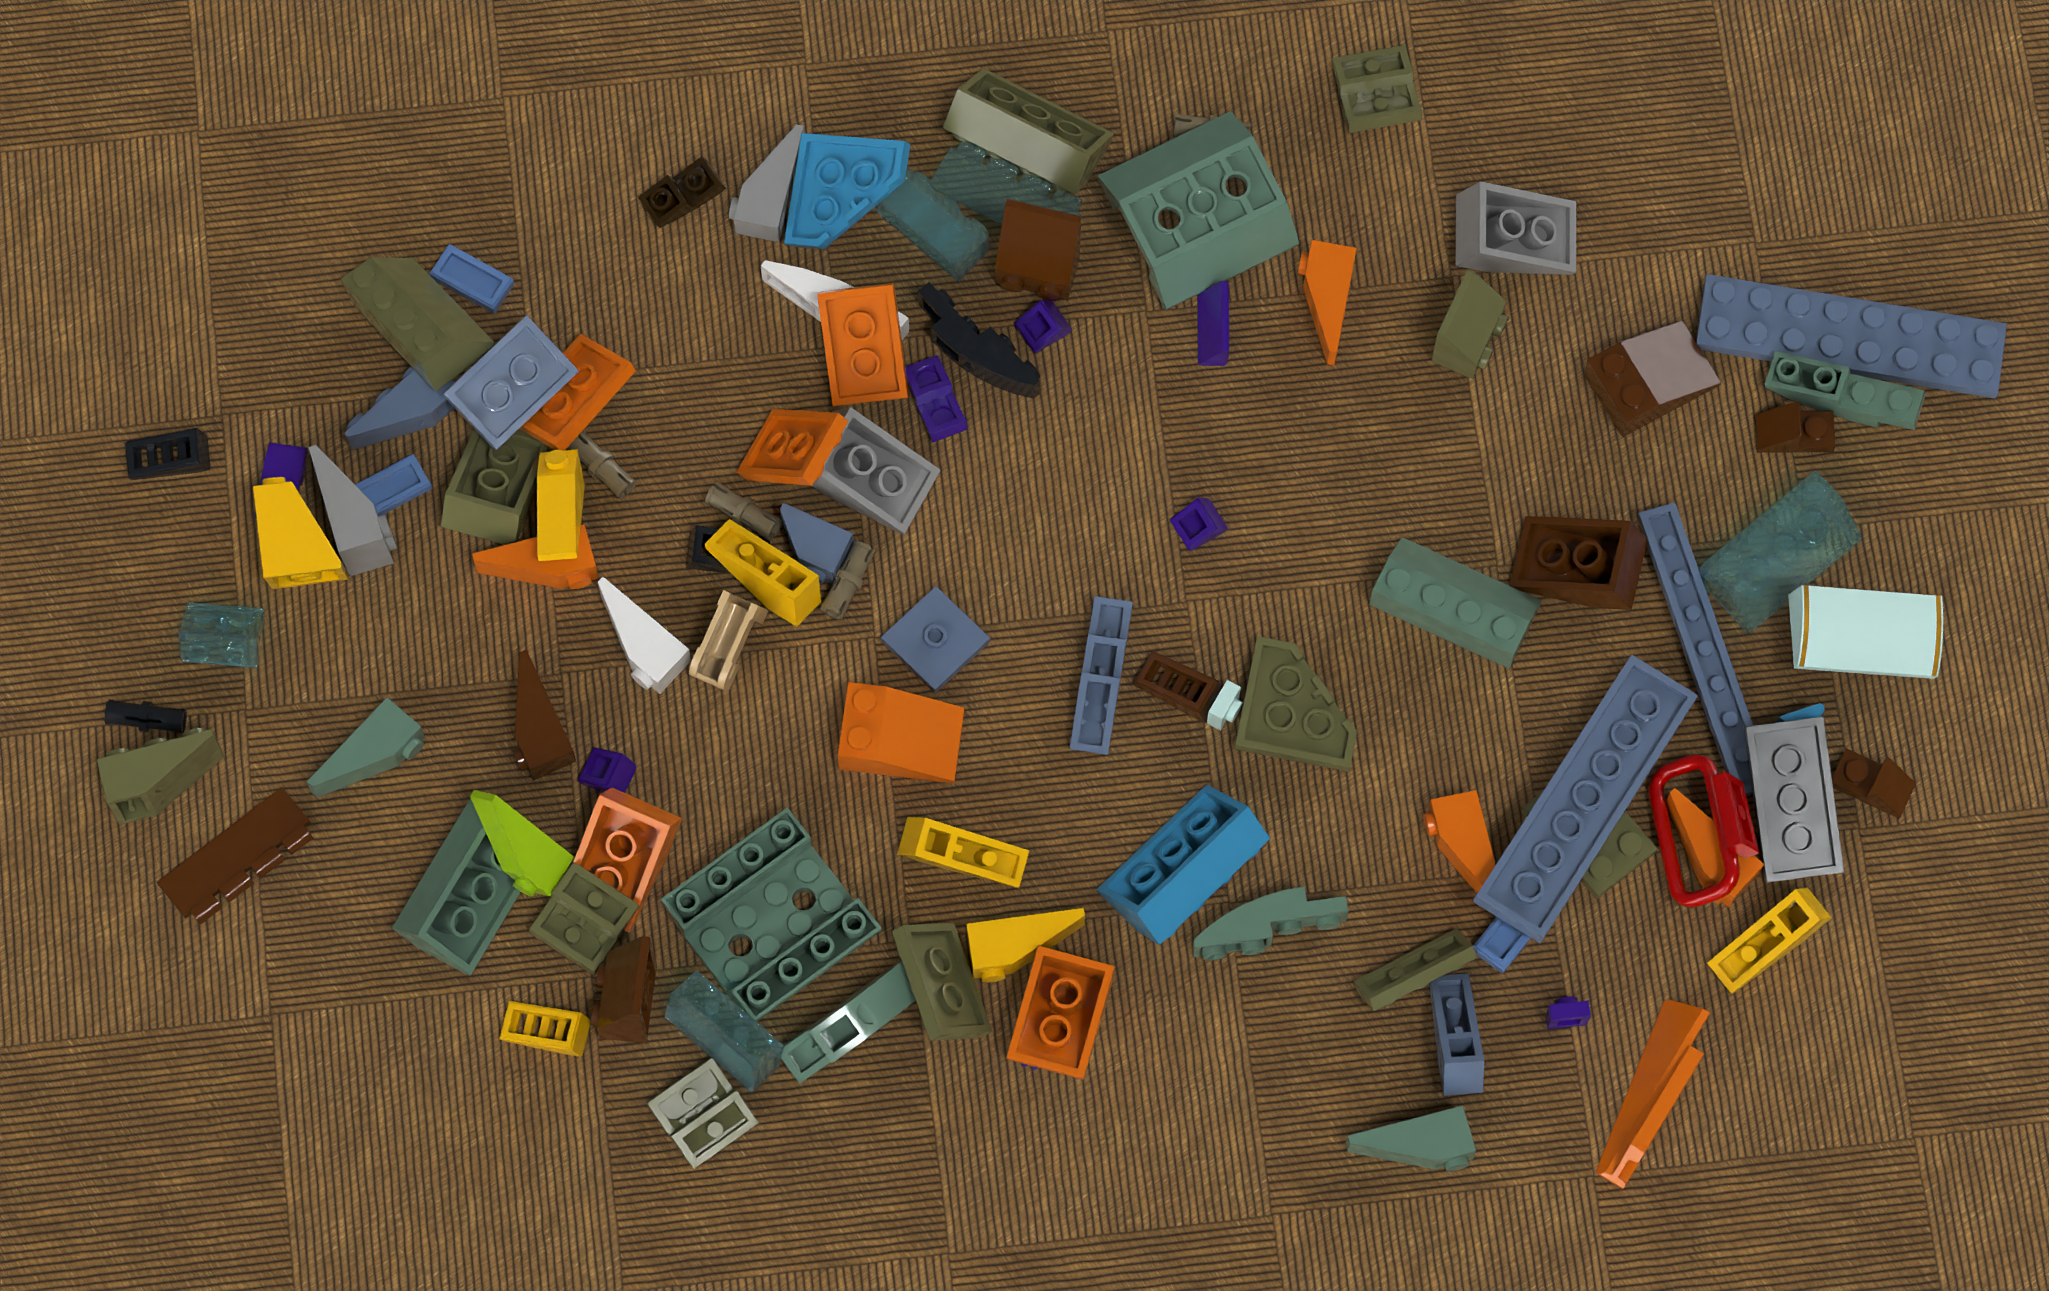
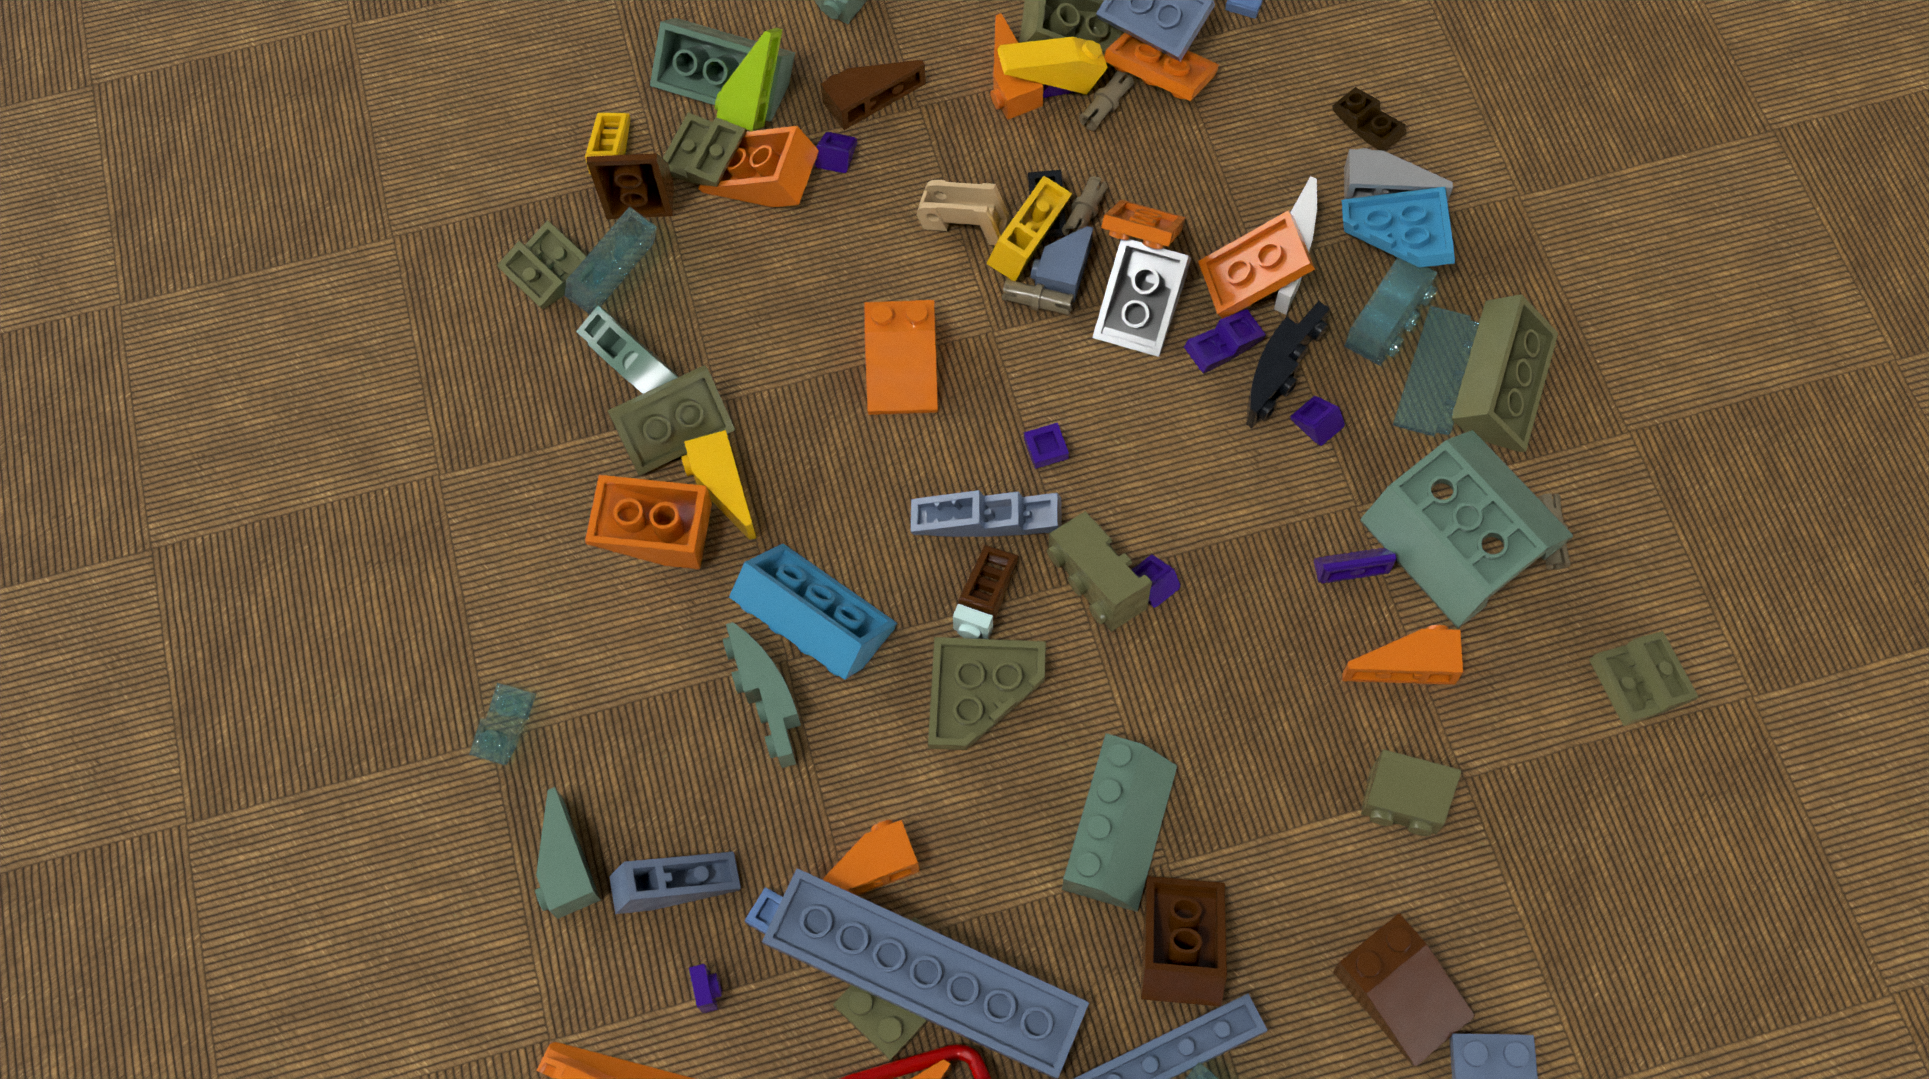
camera: 85 degrees right, 5 degrees down
(649, 648) = (955, 148): white slope -> none
(752, 897) = (740, 270): sand green slope -> none
(935, 639) = (997, 376): sand blue plate -> none
(962, 851) = (798, 423): yellow slope -> none
(1031, 601) = (1046, 445): none -> dark purple plate
(1038, 250) = (1380, 389): reddish brown slope -> none
(1189, 571) = (1098, 571): none -> olive wedge
(1259, 1197) = (504, 724): none -> clear light blue slope
(1415, 969) = (734, 834): olive plate -> none
(1514, 231) = (1527, 831): light grey slope -> none

